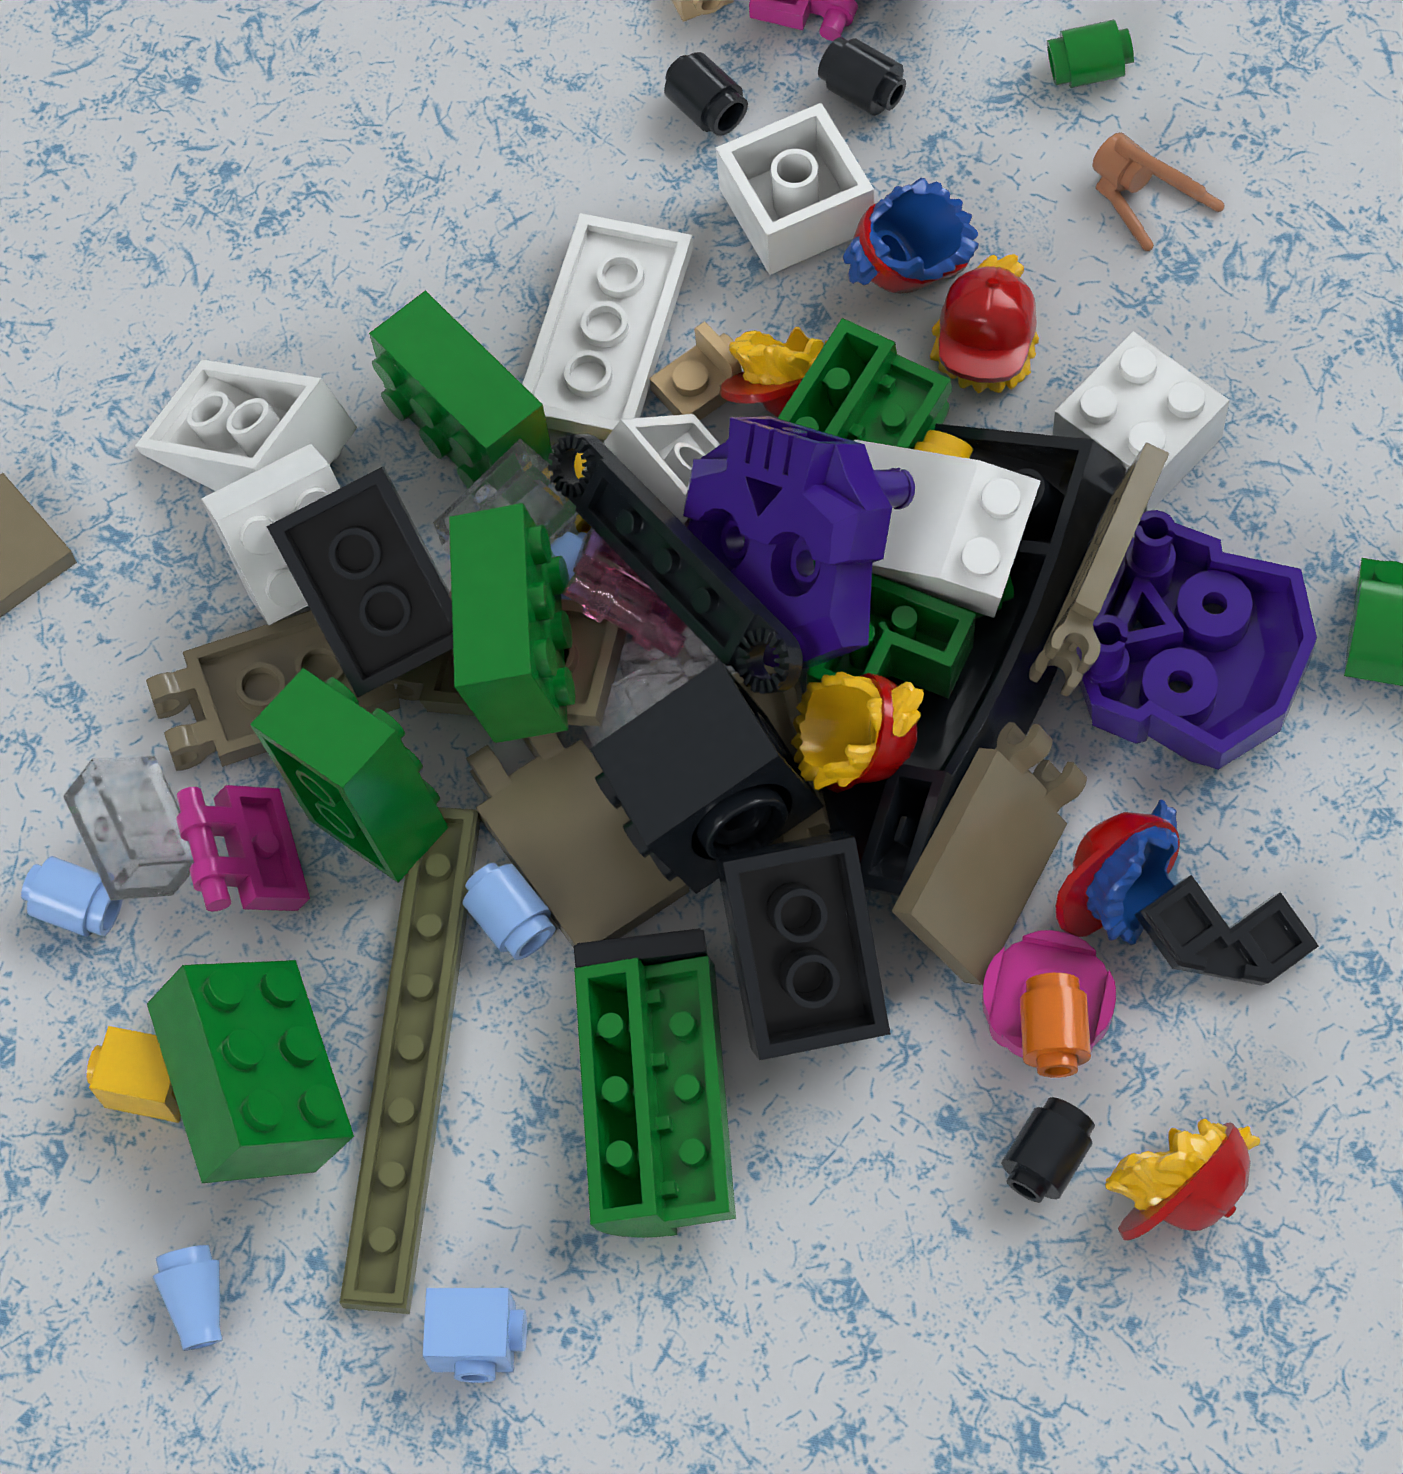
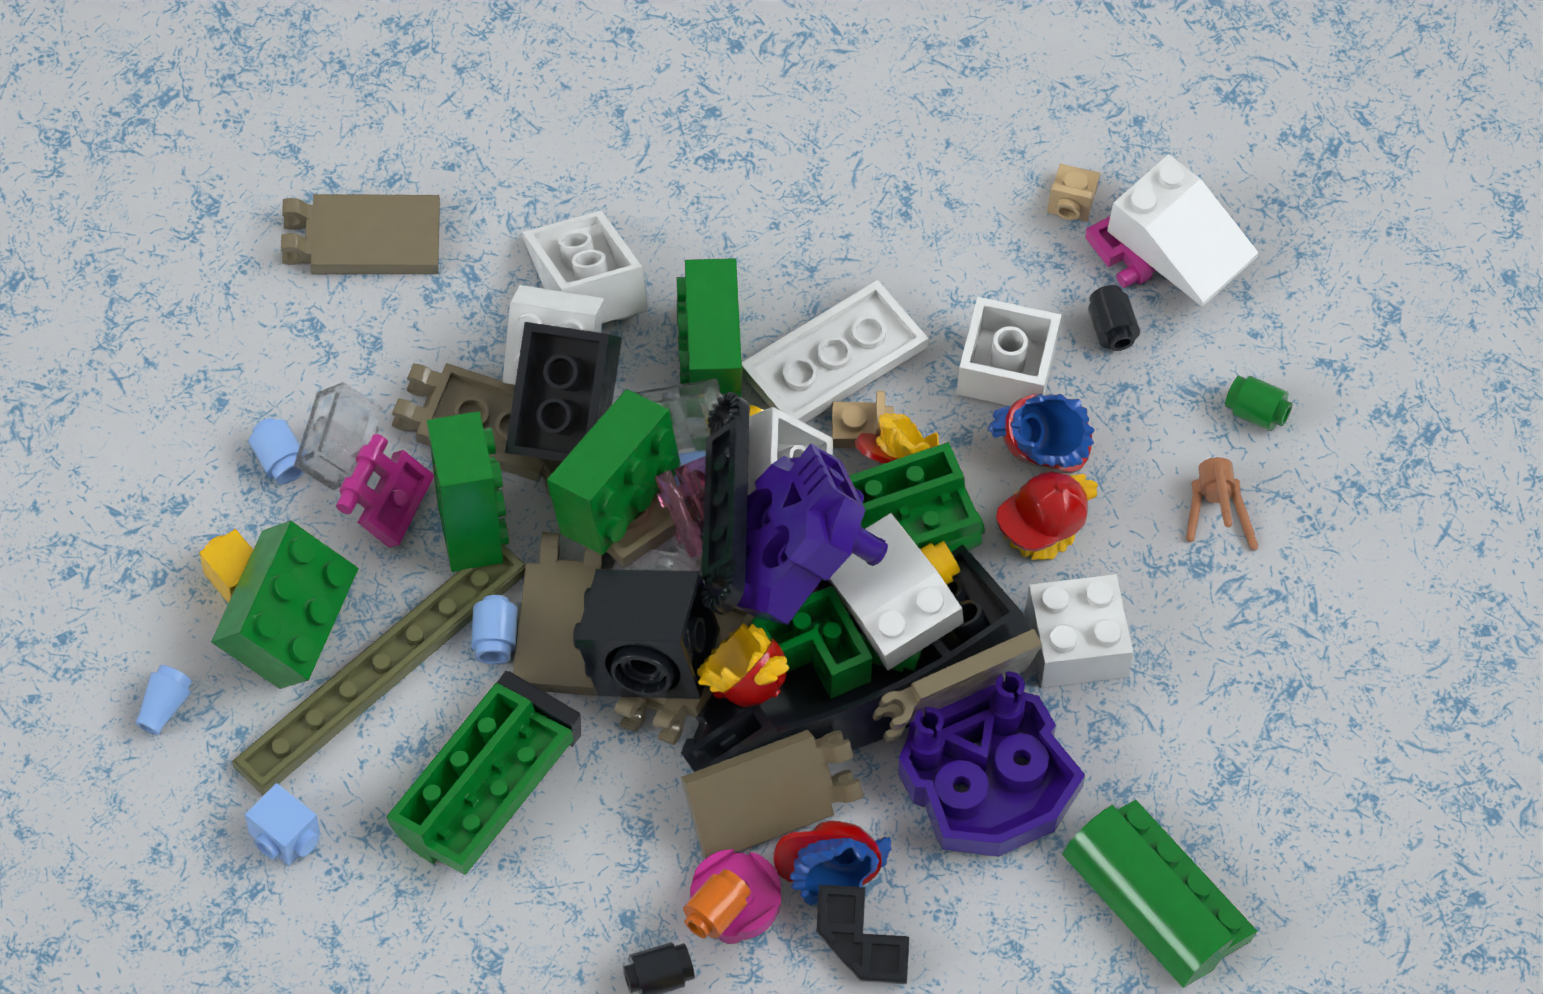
camera: 30 degrees right, 5 degrees down
(705, 93) = (1013, 263): black brick -> none
(802, 945) = (620, 759): black brick -> none

